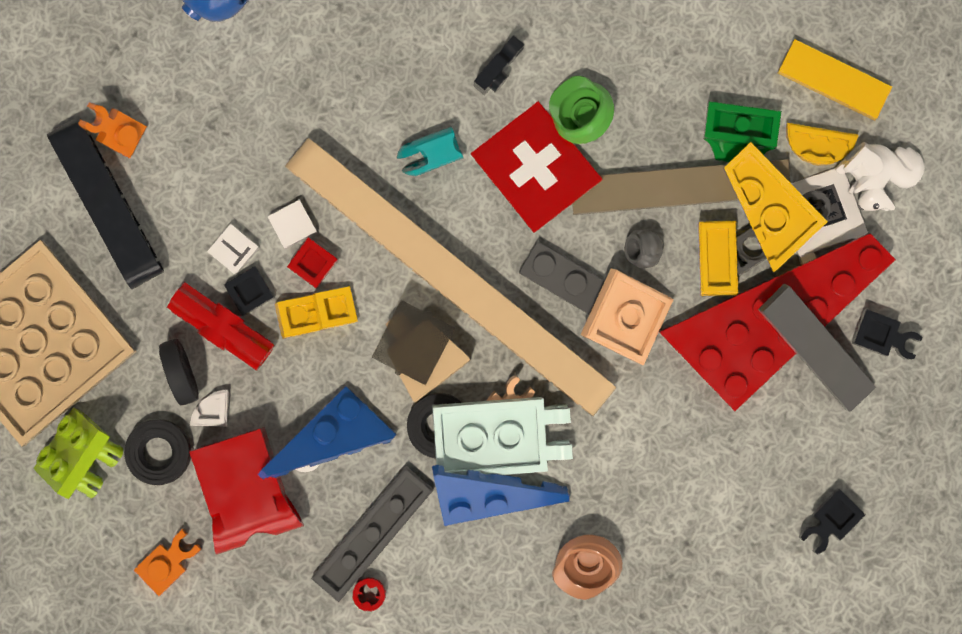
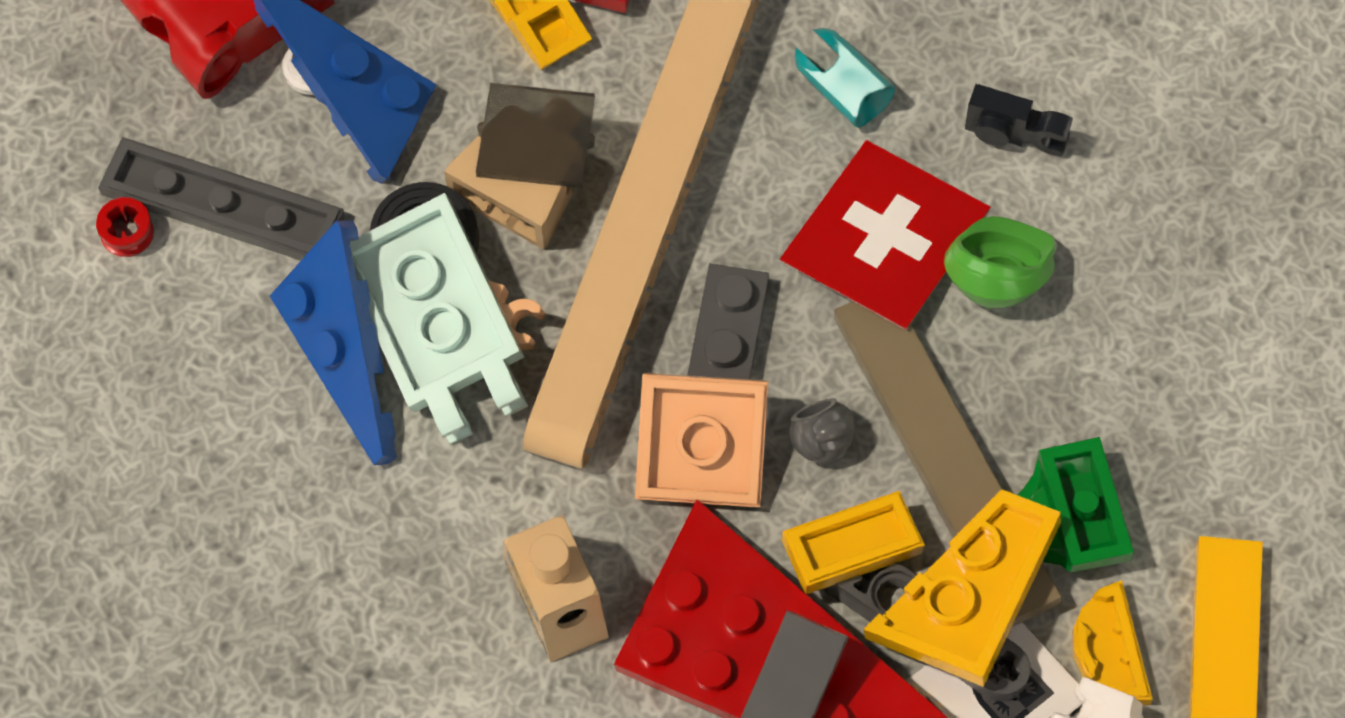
camera: 75 degrees right, 20 degrees down
(587, 566) = (276, 520): nougat hat -> none
(680, 428) = (552, 583): none -> tan torso

